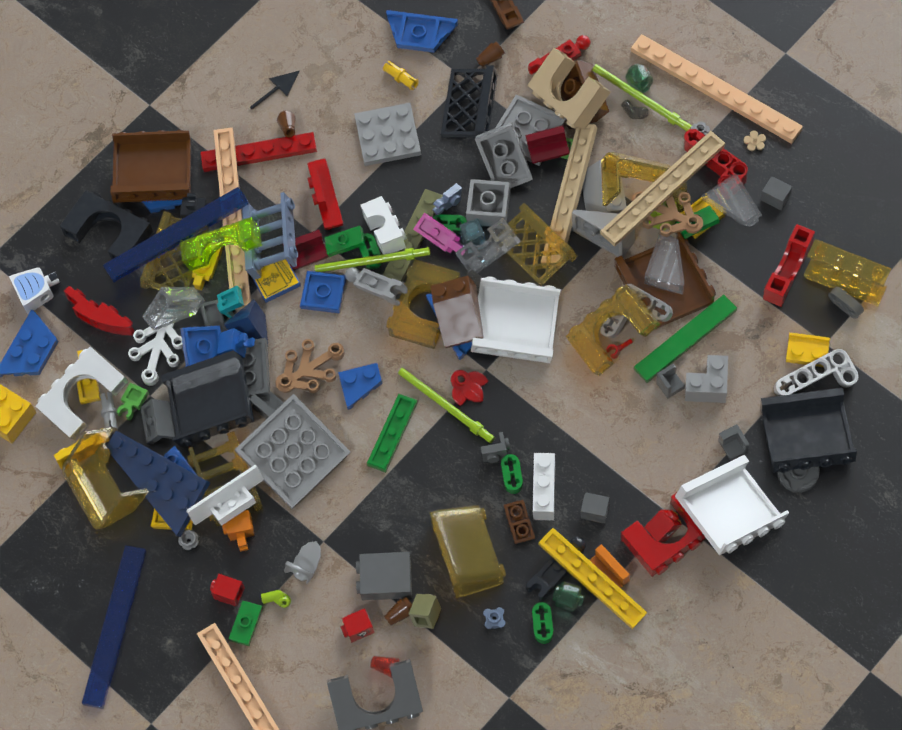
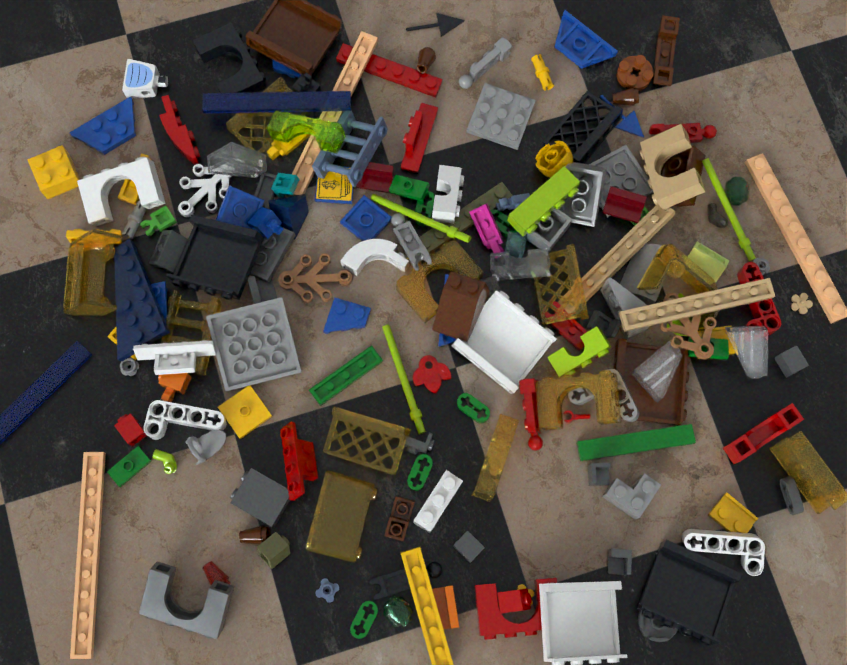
camera: 20 degrees right, 10 degrees up
(273, 552) = (186, 418): none -> white beam
(320, 516) = (245, 411): none -> yellow plate
(347, 312) = (373, 250): none -> white arch
(351, 79) = (490, 58): none -> light grey plate
(357, 625) = (213, 526): red brick -> none
(396, 525) = (298, 460): none -> red bracket
(441, 455) = (366, 423): none -> clear yellow fence
(460, 142) = (553, 158): none -> yellow cylinder
(475, 179) = (544, 201): none -> lime brick
(481, 20) = (636, 63): none -> dark orange plate
(507, 75) = (629, 123): none -> blue piece
(524, 393) = (476, 405): none -> green beam
(565, 349) = (529, 404): none -> red plate
(573, 279) = (569, 329): none -> red plate
(574, 428) = (495, 457): none -> clear yellow arch
(594, 257) = (608, 326): none -> dark grey bracket
(598, 276) = (595, 345): none -> lime arch
(651, 150) = (708, 260): none -> yellowish green panel

